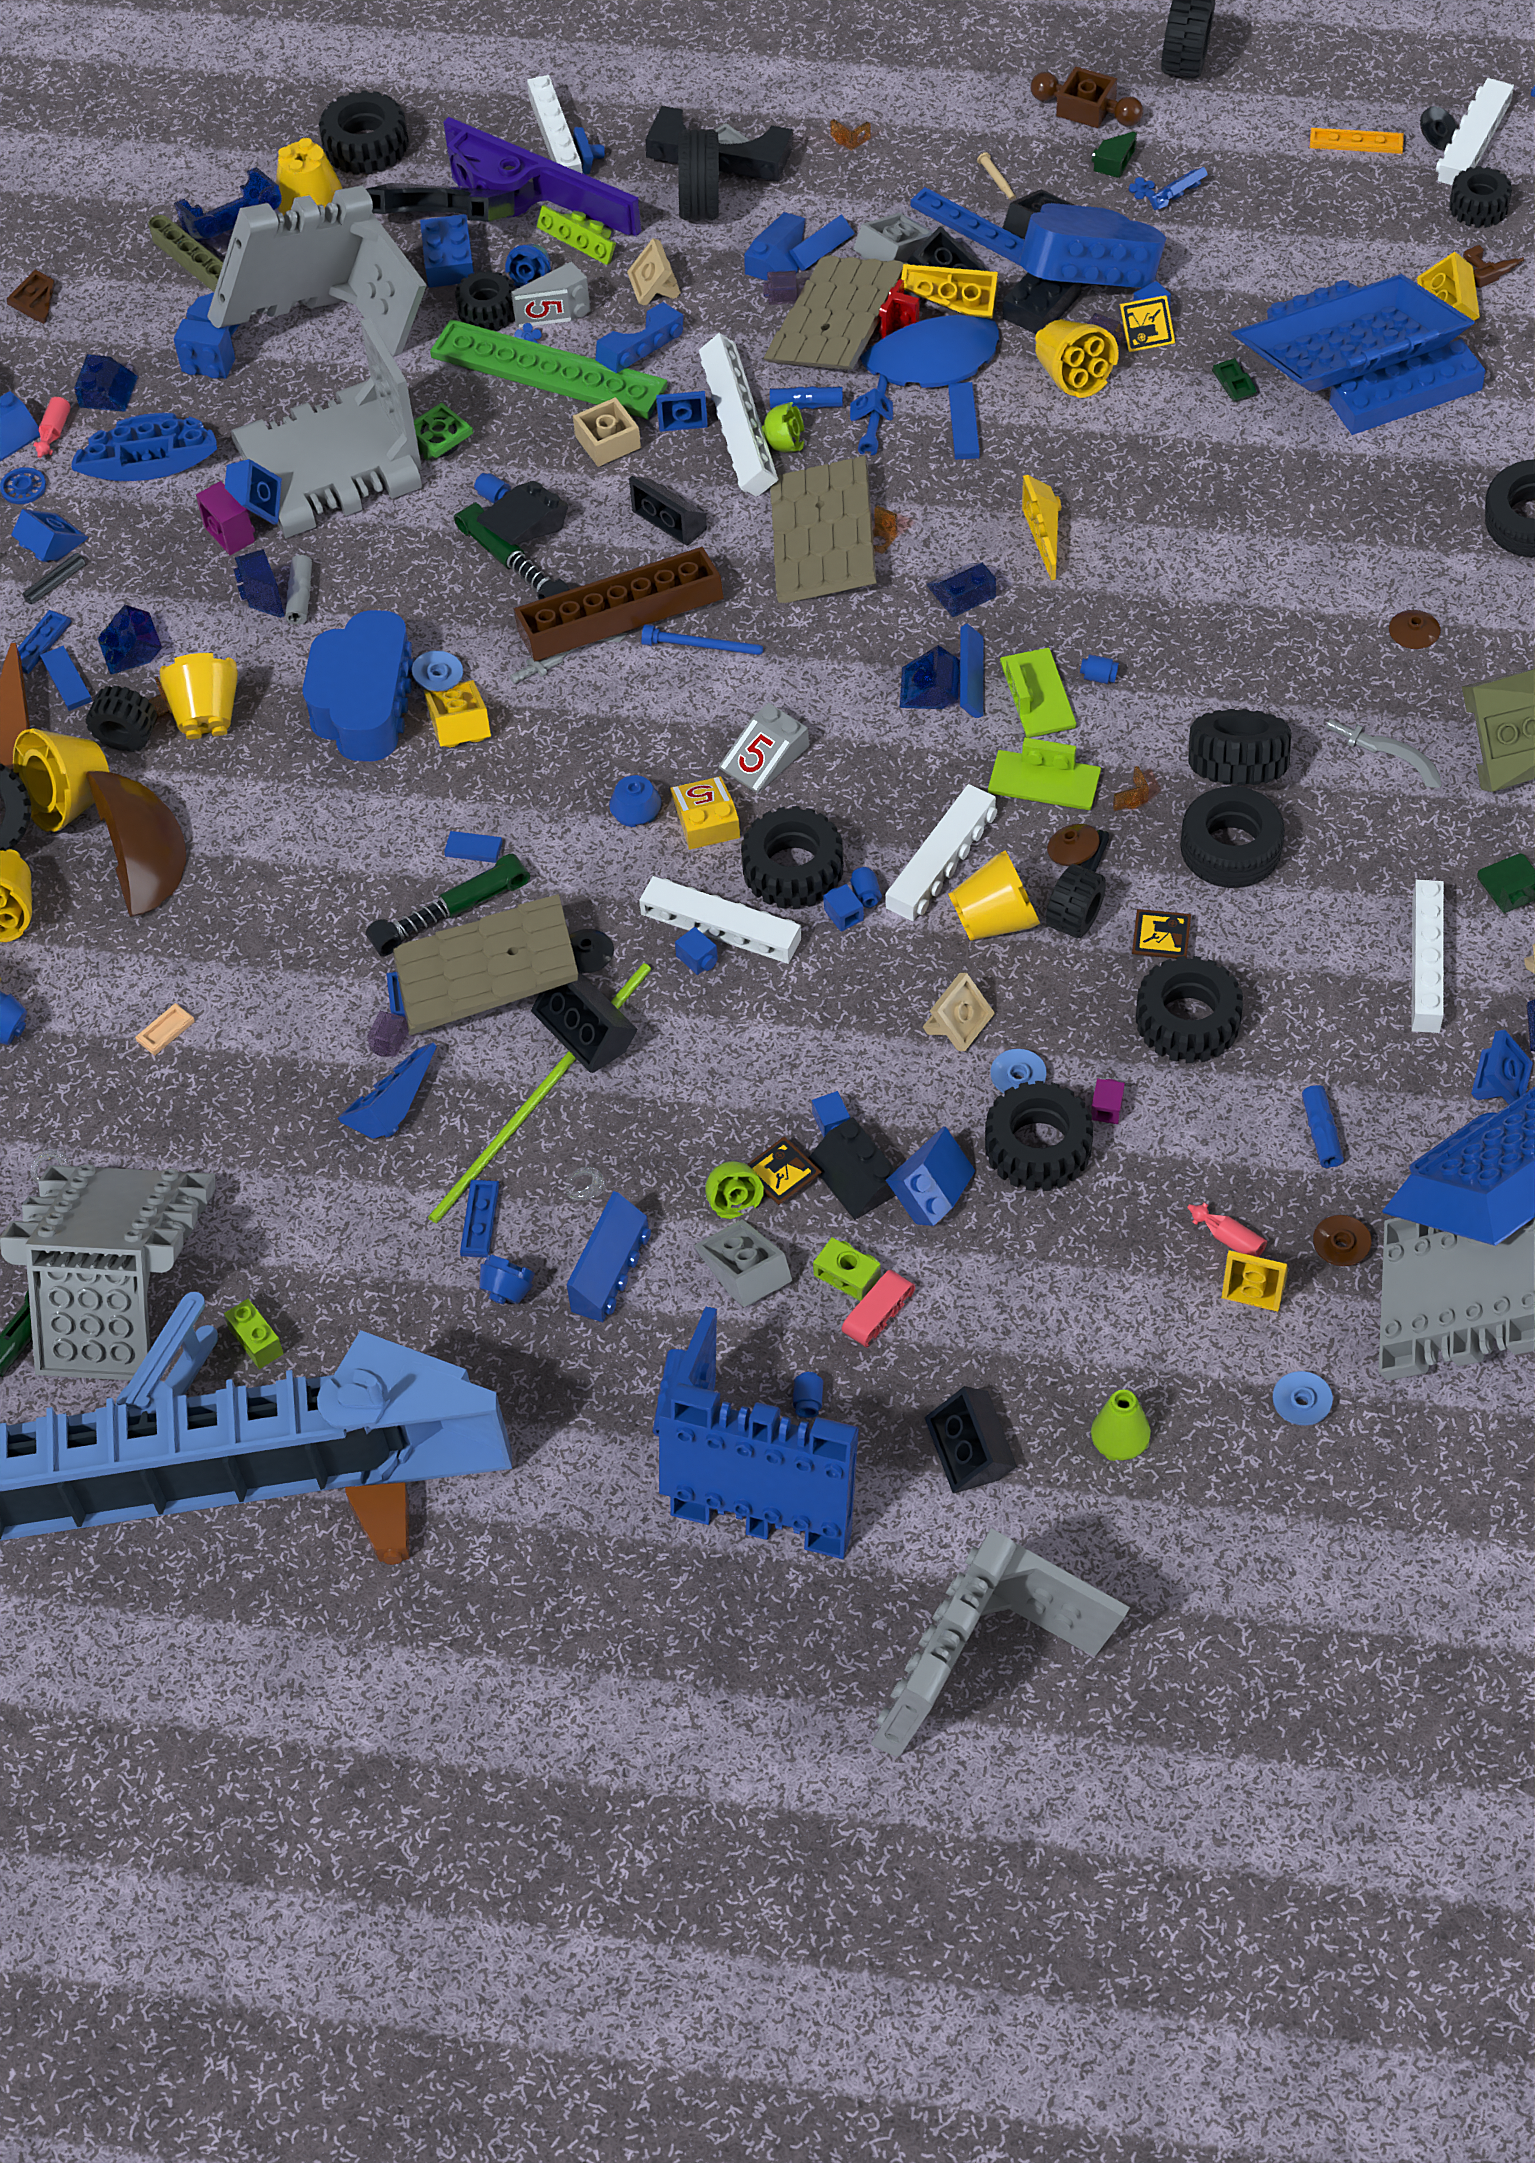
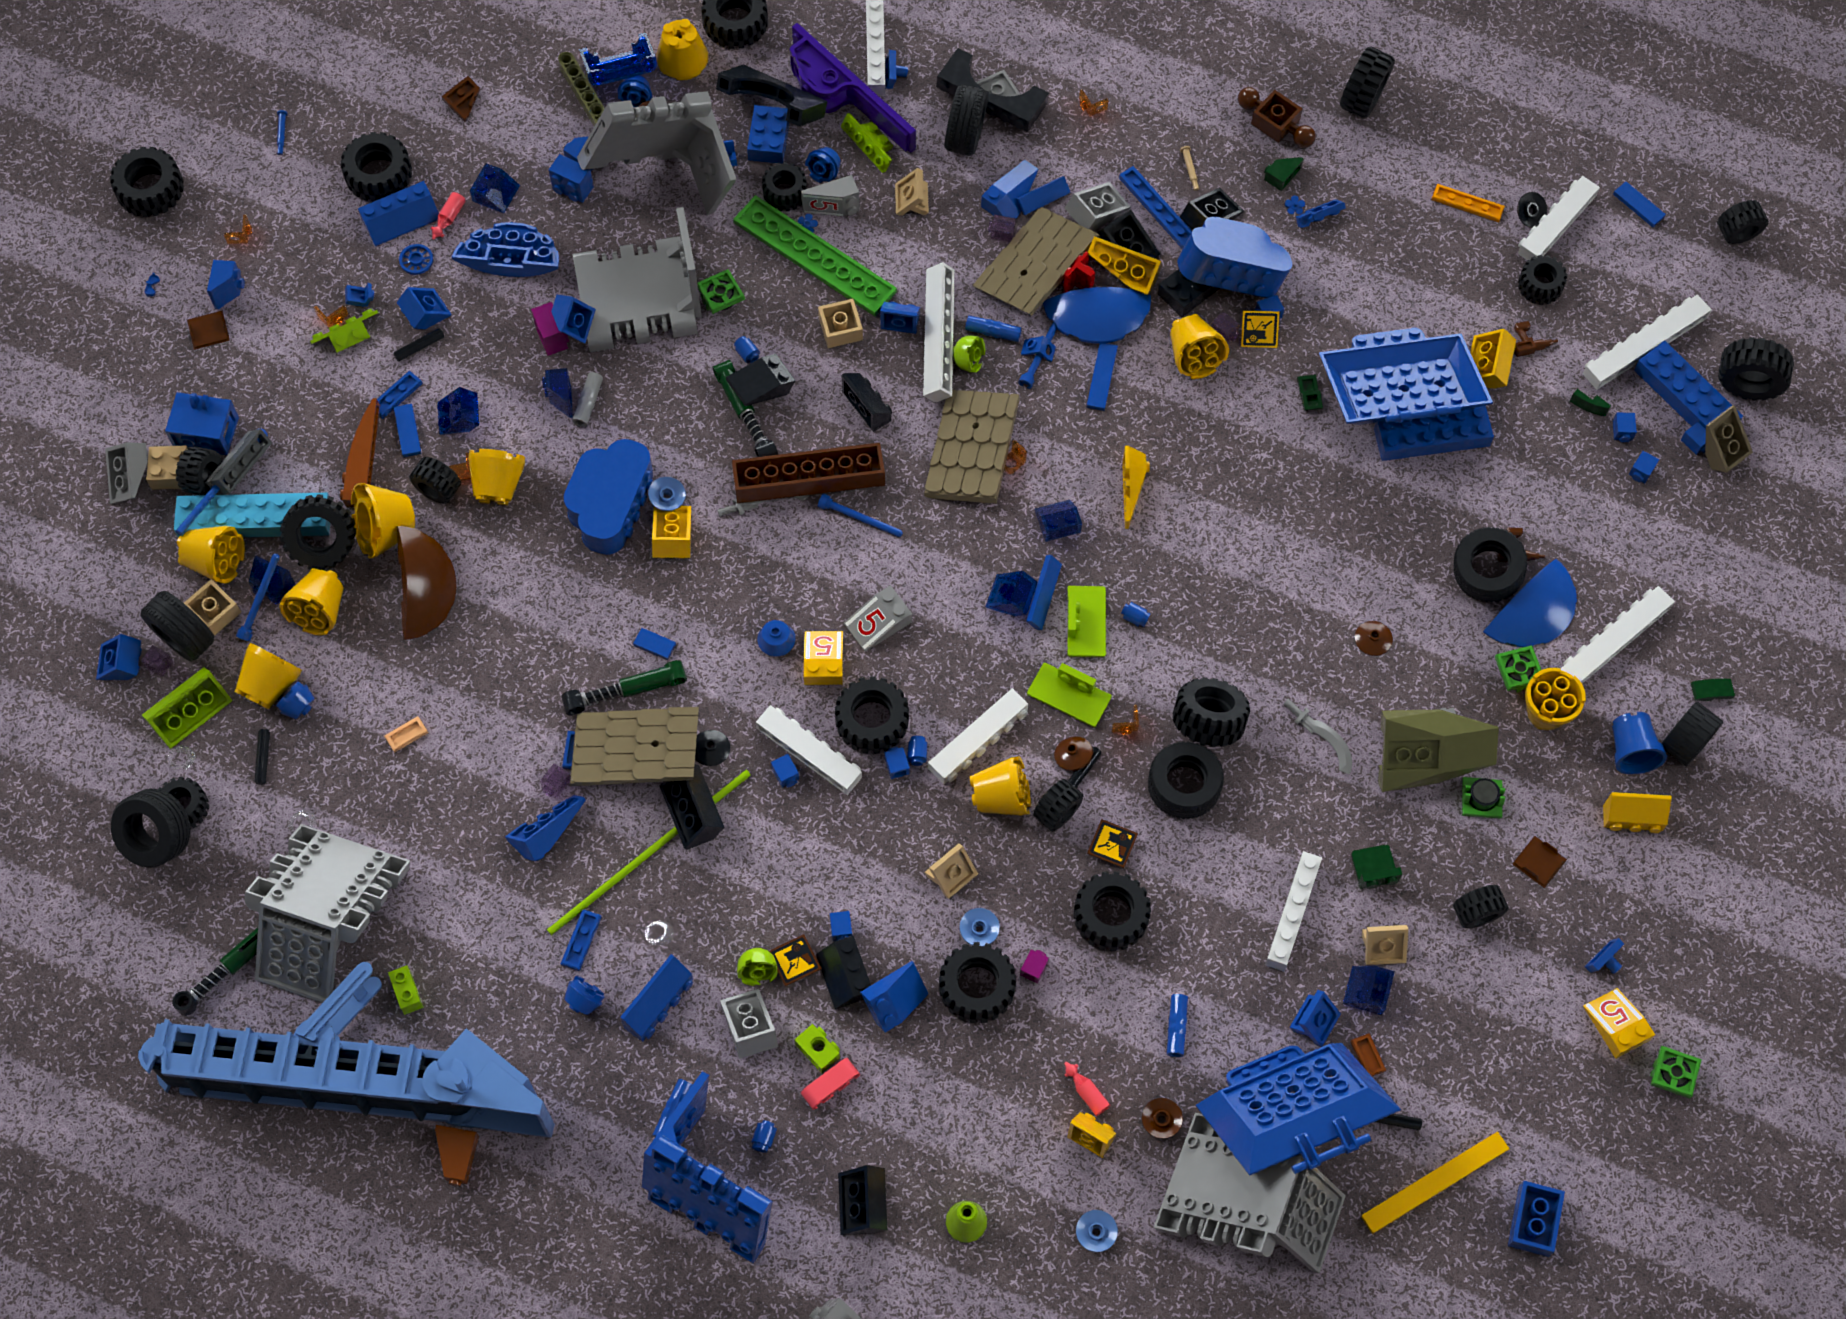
camera: 10 degrees right, 10 degrees up
(621, 350) = (869, 256): blue arch -> none

